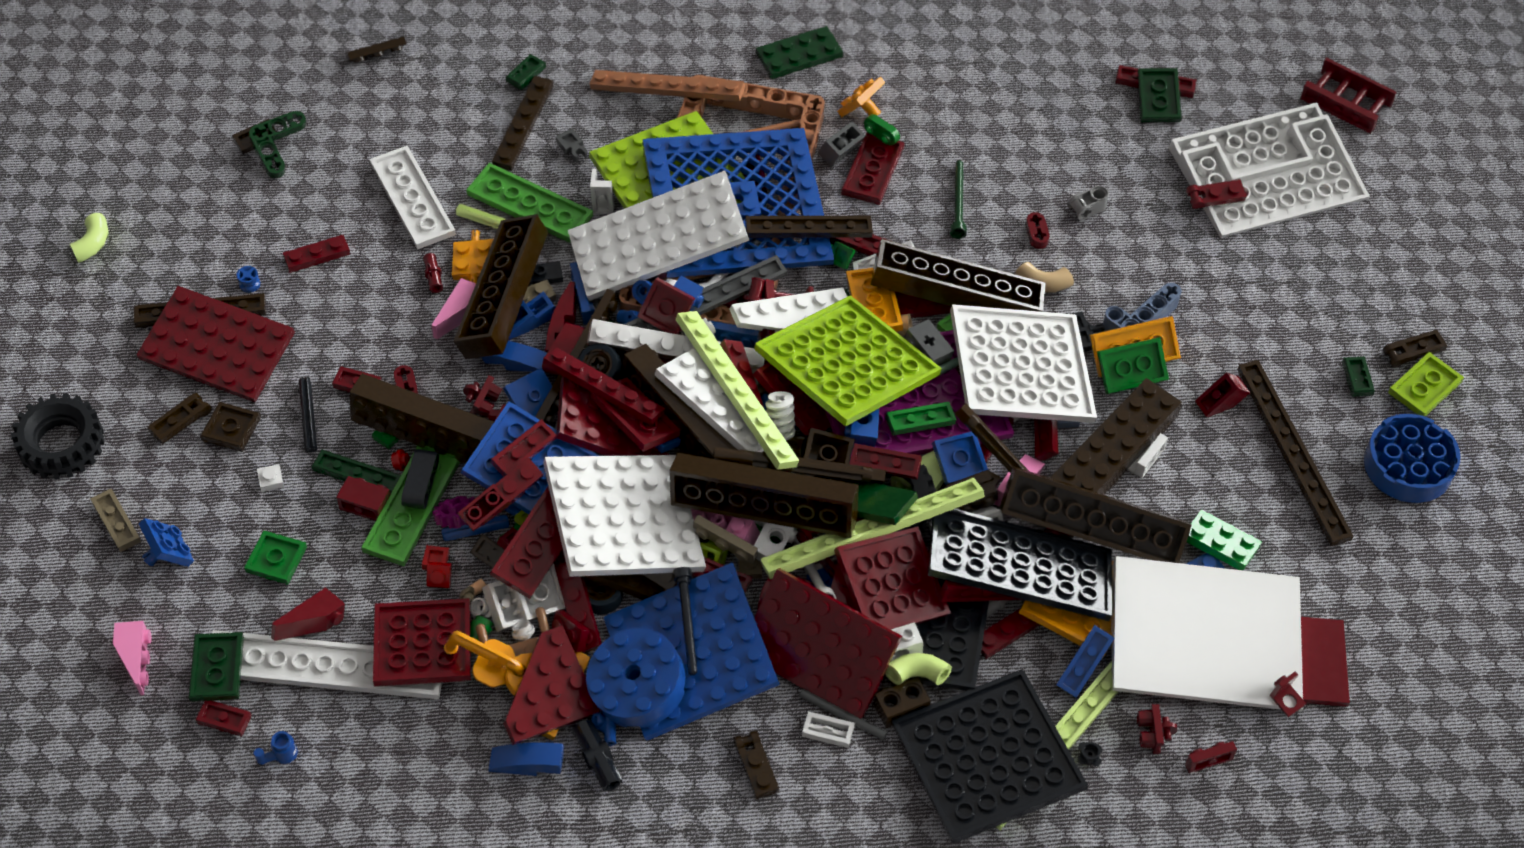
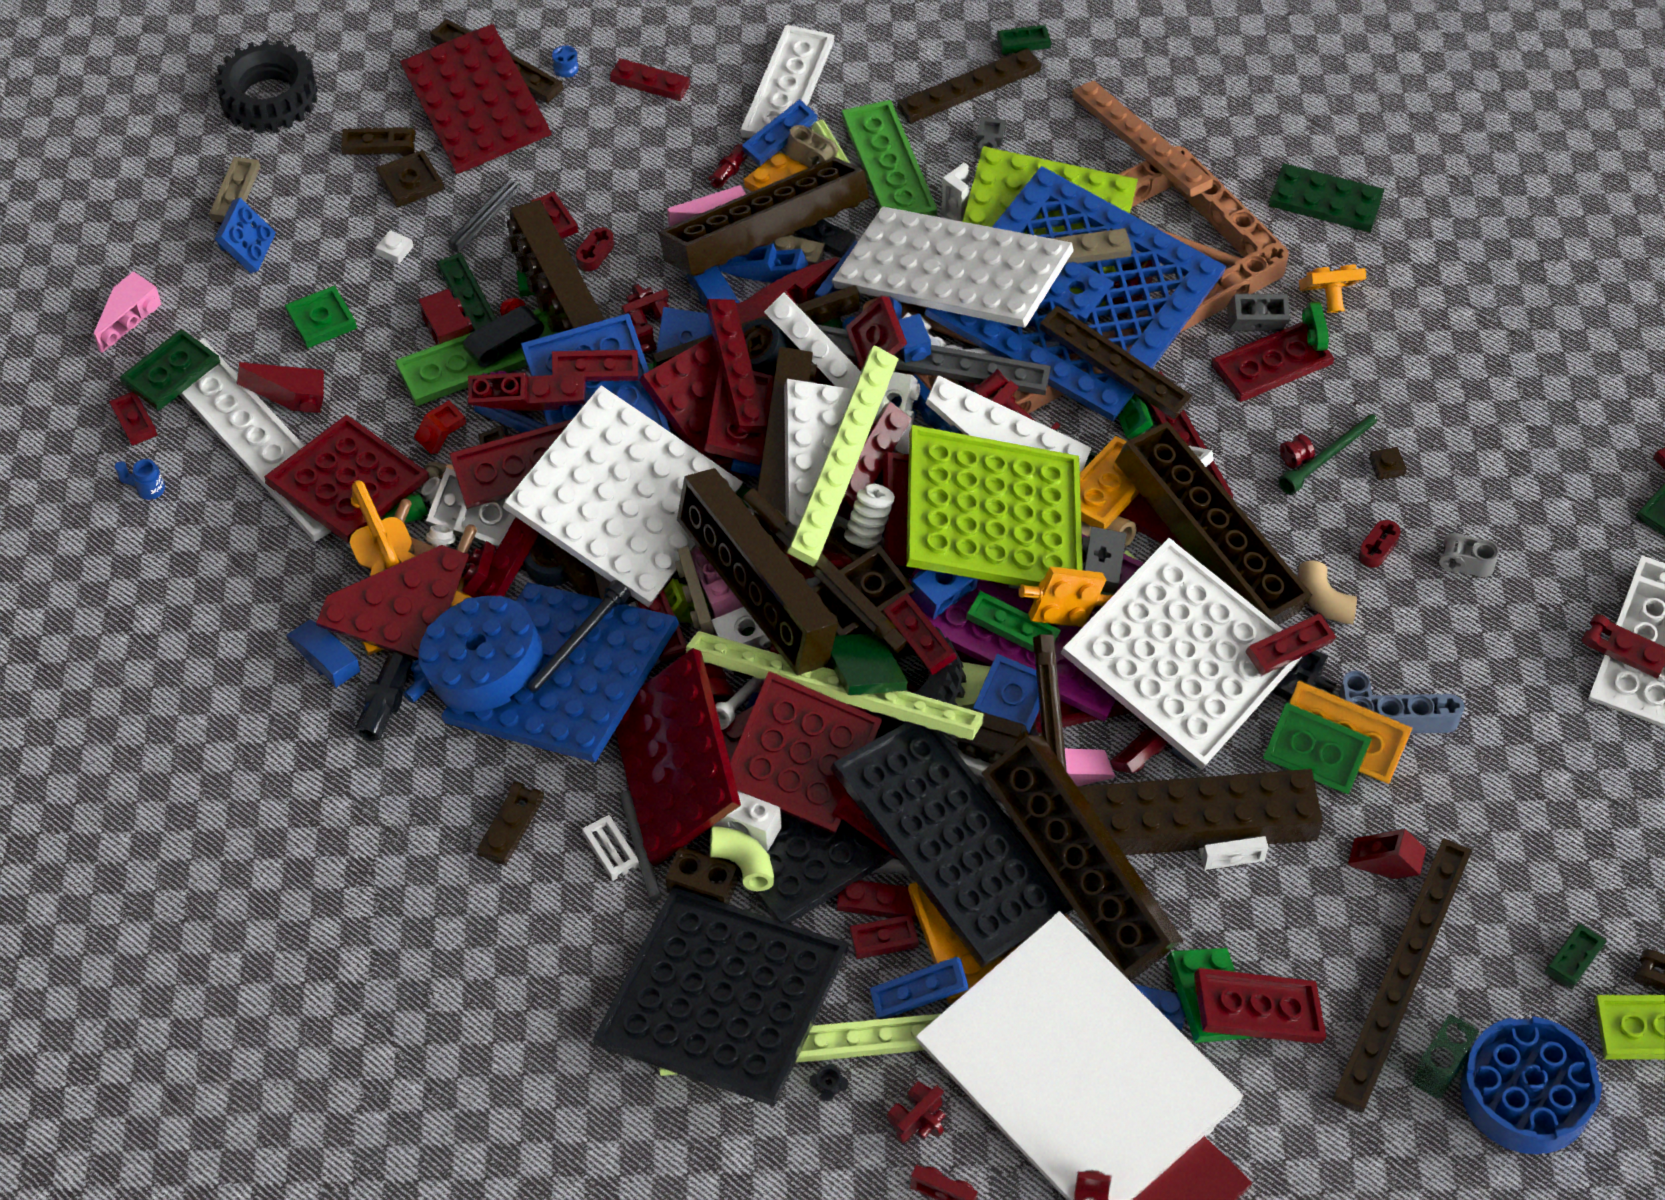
camera: 45 degrees right, 0 degrees up
(447, 229) = (776, 133): none -> blue plate
(476, 226) = (808, 146): none -> dark tan piece
(728, 161) = (1098, 246): none -> dark tan plate
(939, 378) = (1066, 596): none -> light orange plate
(943, 209) = (1297, 450): none -> dark red wheel
(993, 182) = (1387, 463): none -> dark brown plate
(1030, 650) = (884, 937): none -> dark red plate
(1069, 317) = (1290, 644): none -> dark red plate
(1254, 525) = (1259, 1006): none -> dark red plate
(1368, 491) = (1437, 1080): none -> clear green piece

